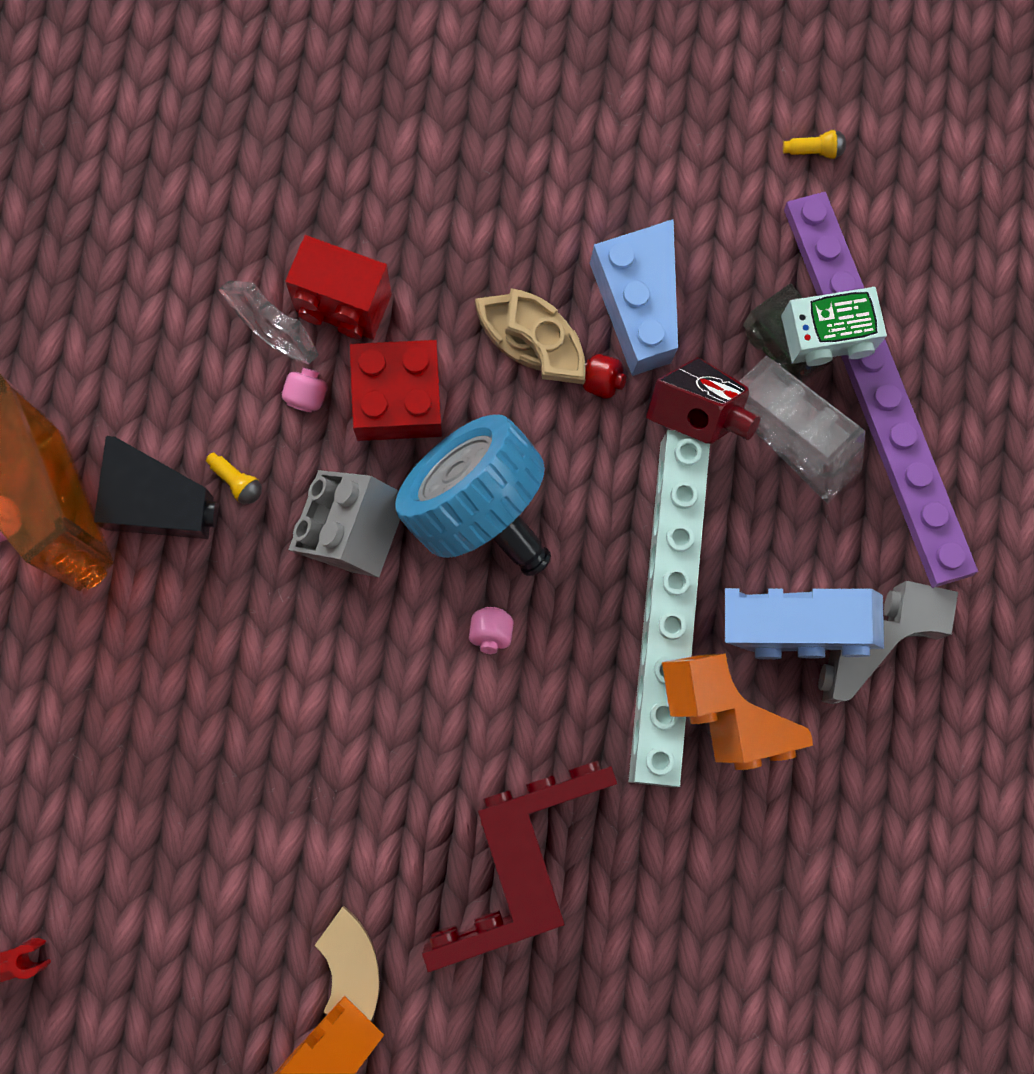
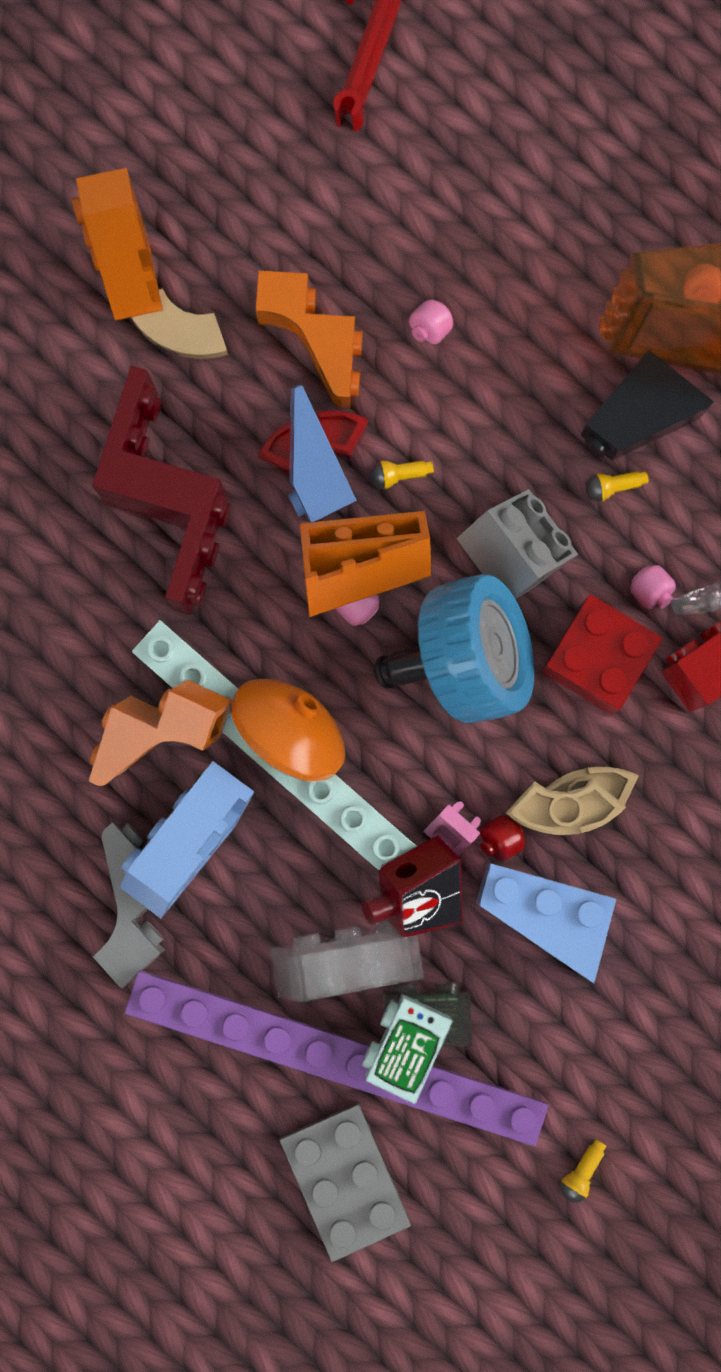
camera: 135 degrees right, 5 degrees up
(189, 740) = (431, 322): none -> bright pink piece
(271, 816) = (329, 339): none -> orange arch
(359, 680) = (386, 474): none -> yellow piece
(368, 771) = (340, 428): none -> red tile
(401, 746) = (314, 469): none -> medium blue slope
(453, 645) = (363, 557): none -> orange wedge
(629, 415) = (454, 828): none -> bright pink tile
(649, 601) = (288, 729): none -> orange dish
(960, 319) = (345, 1182): none -> light grey plate

